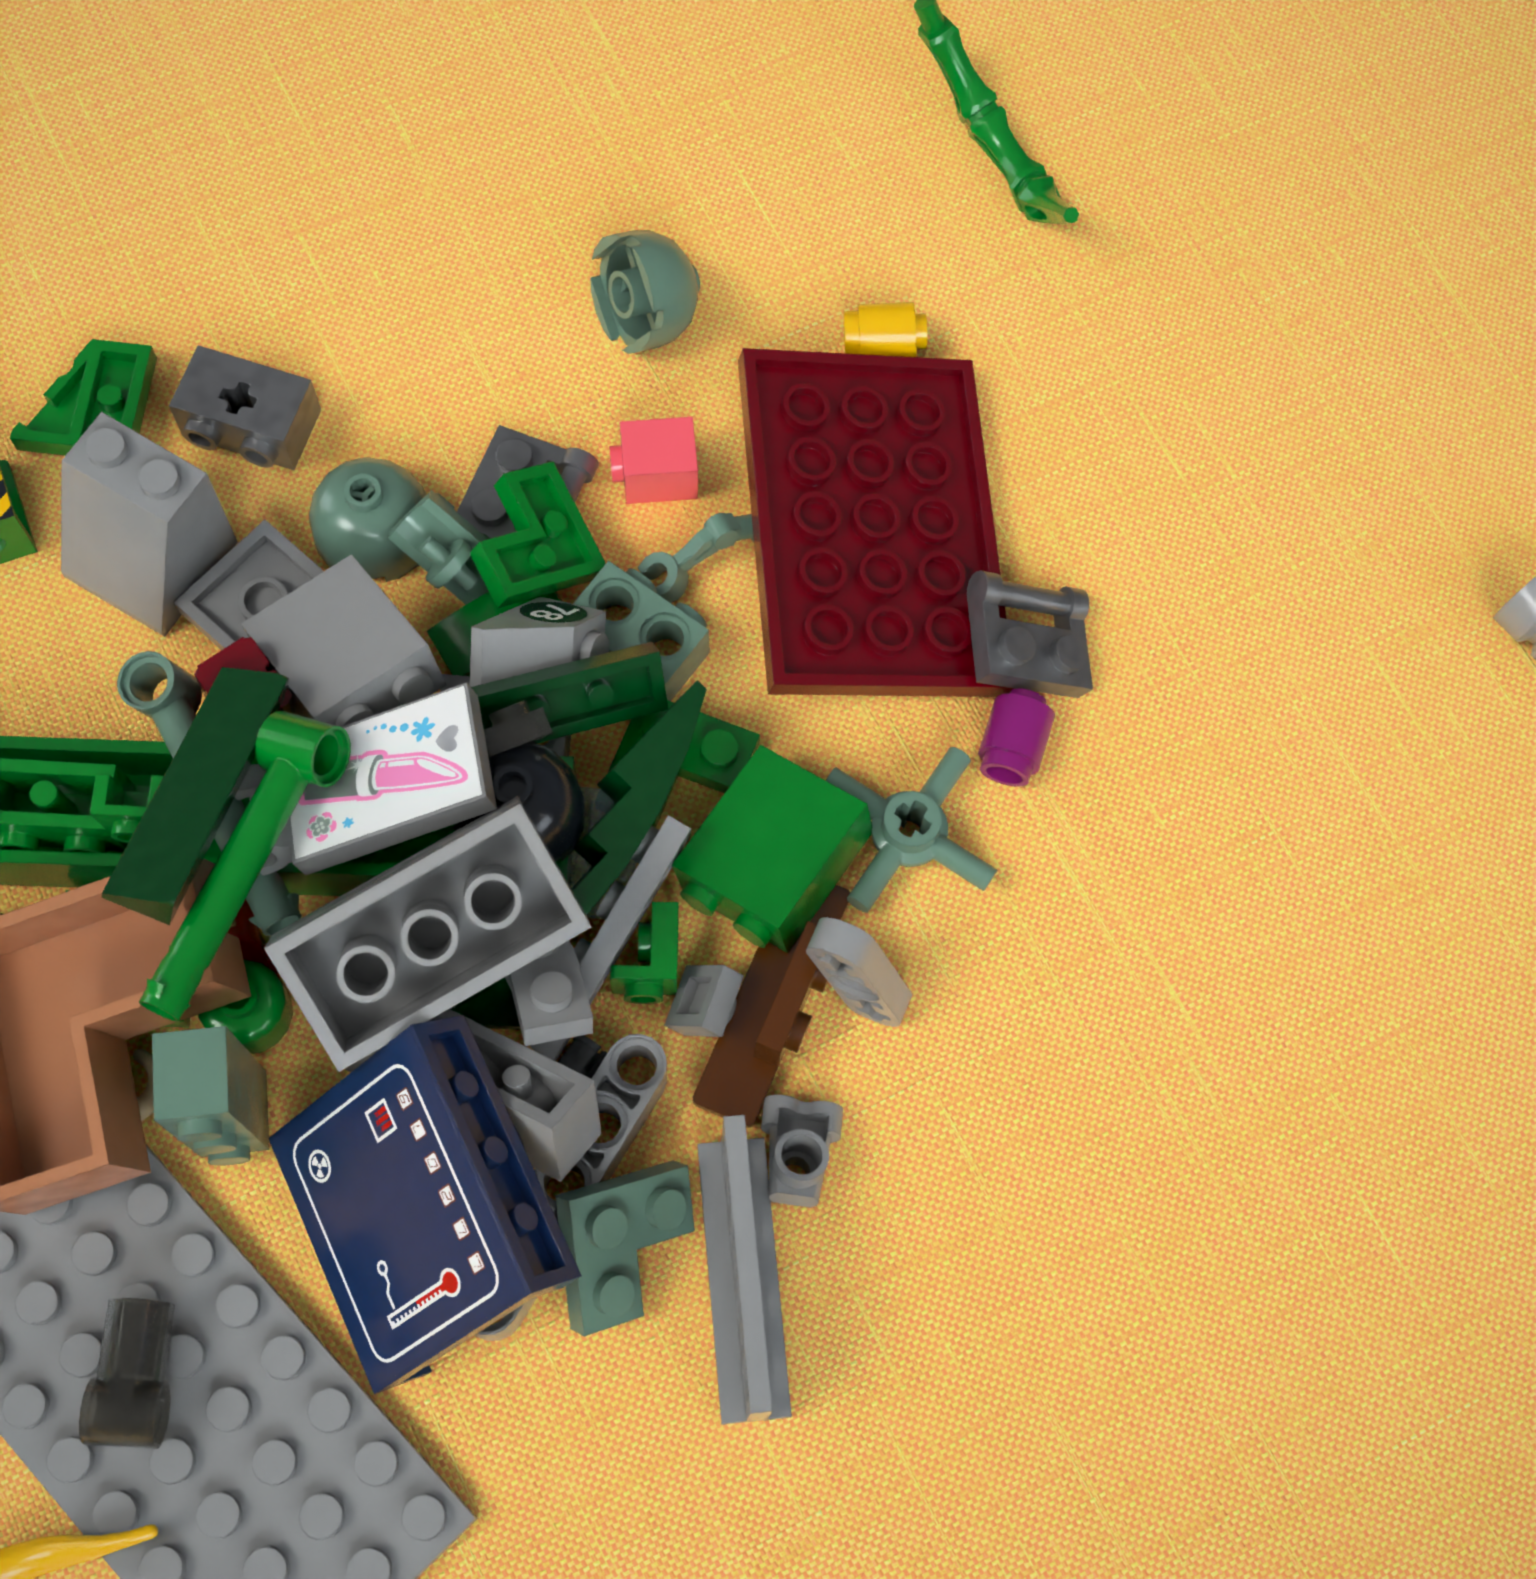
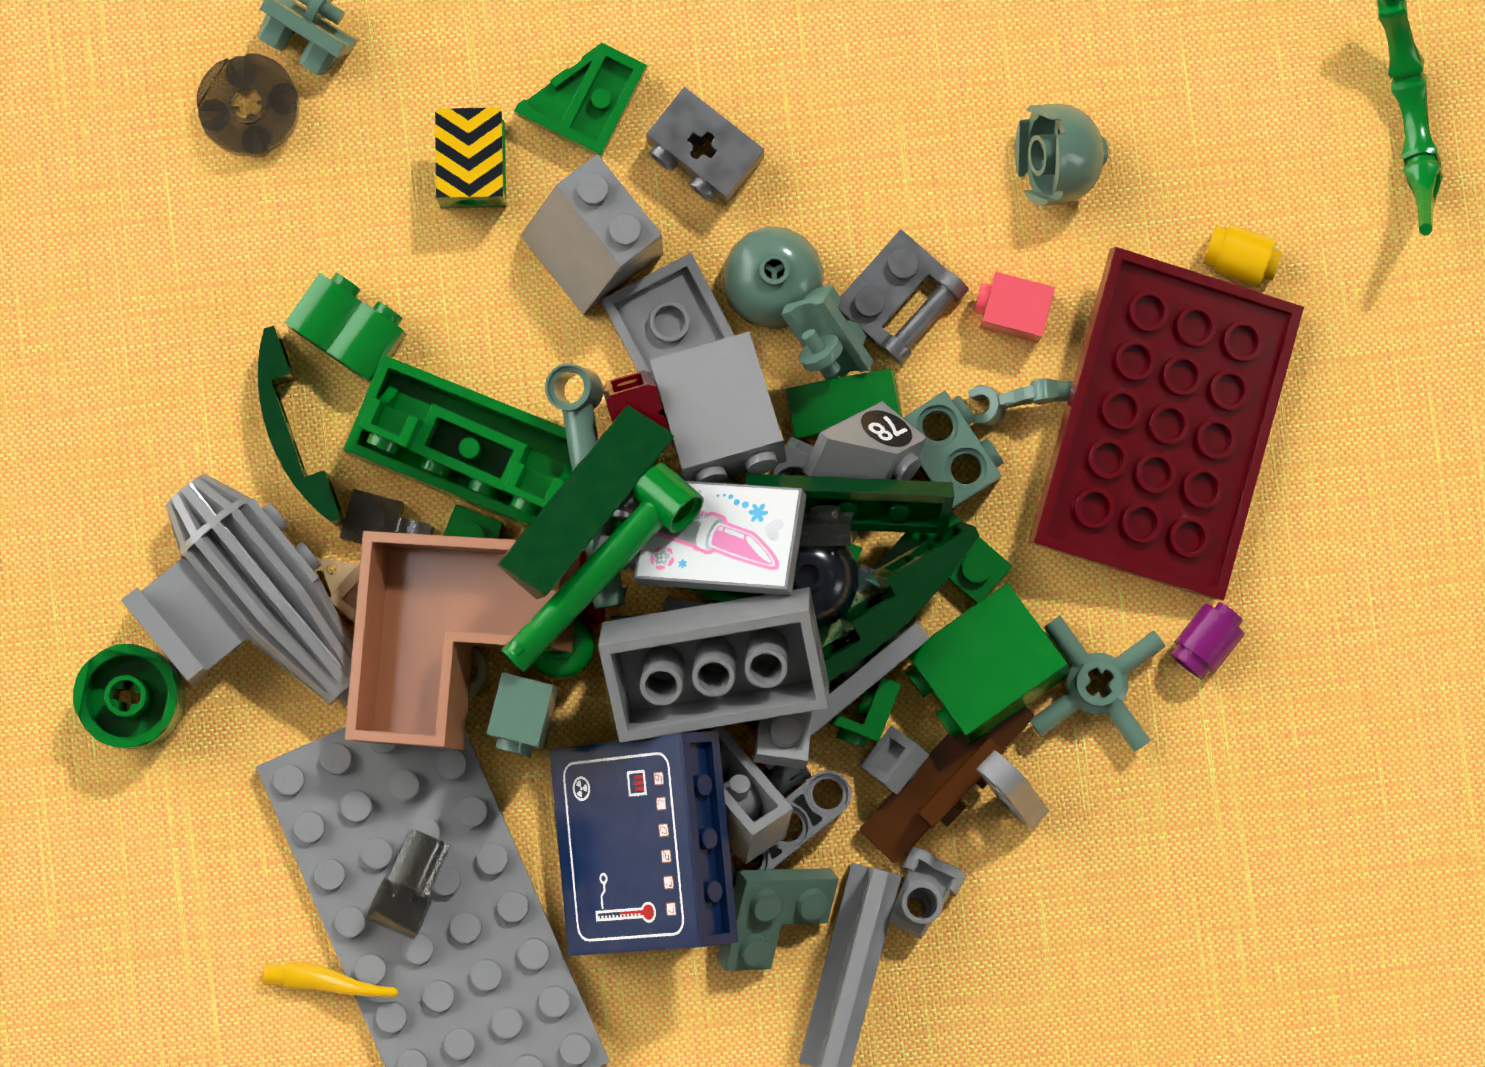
camera: 20 degrees right, 15 degrees up
(550, 543) = (909, 355): green plate -> none
(1029, 653) = (1245, 578): flat silver plate -> none

